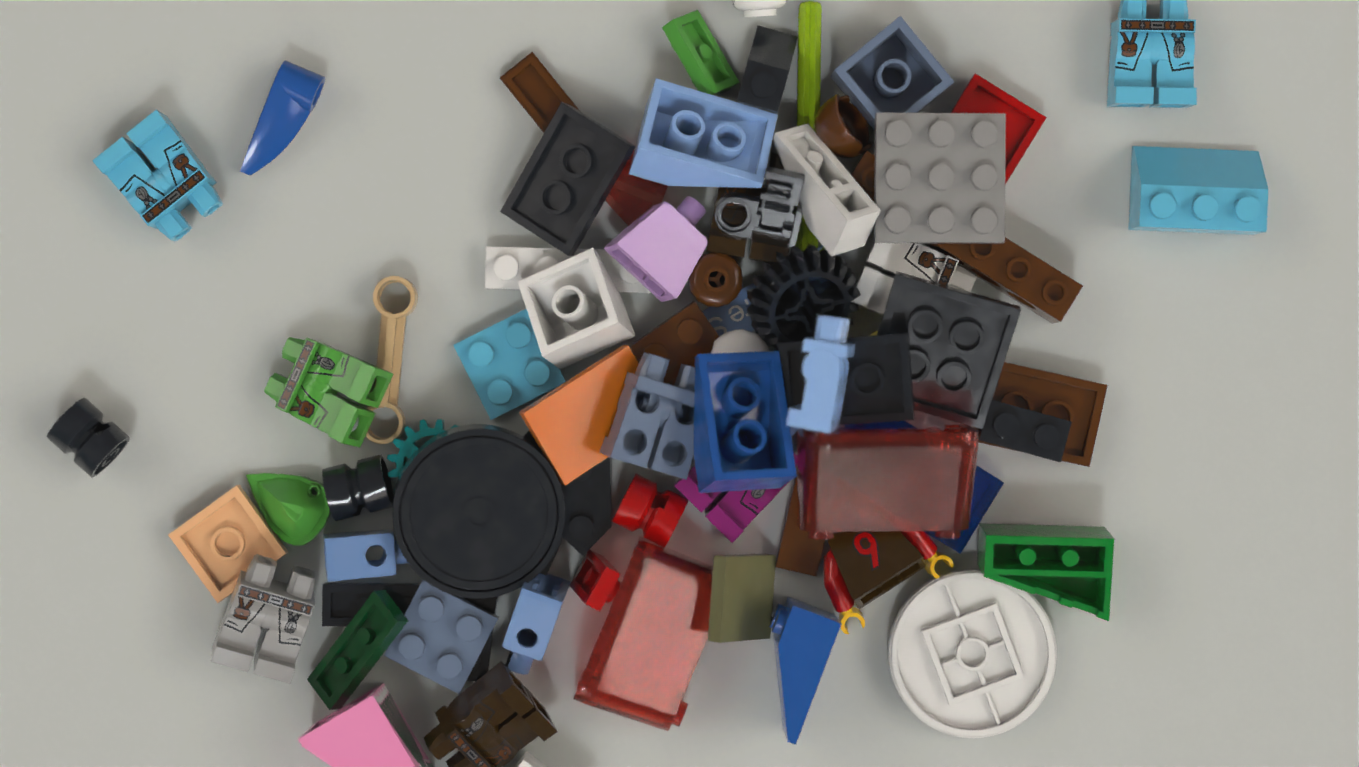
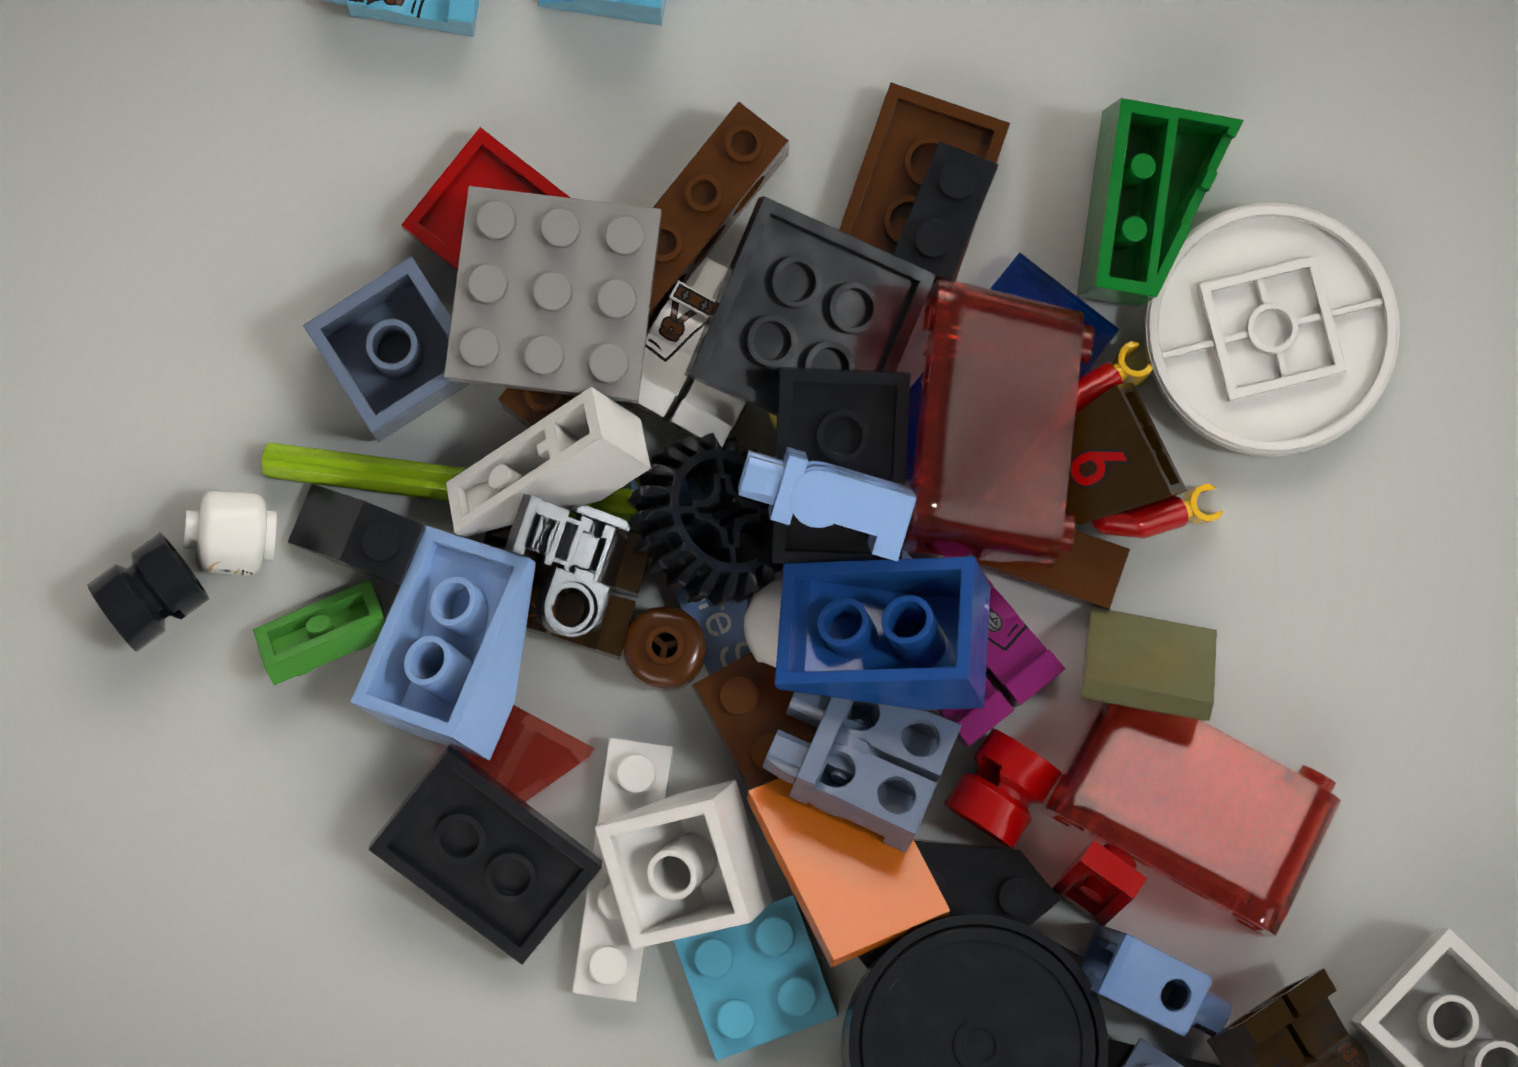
camera: 80 degrees left, 5 degrees down
(535, 90) = (345, 888): reddish brown tile -> none
(662, 247) = (606, 723): lavender torso -> none
(802, 648) = (1240, 583): blue slope -> none
(842, 127) = (458, 431): reddish brown hair -> none

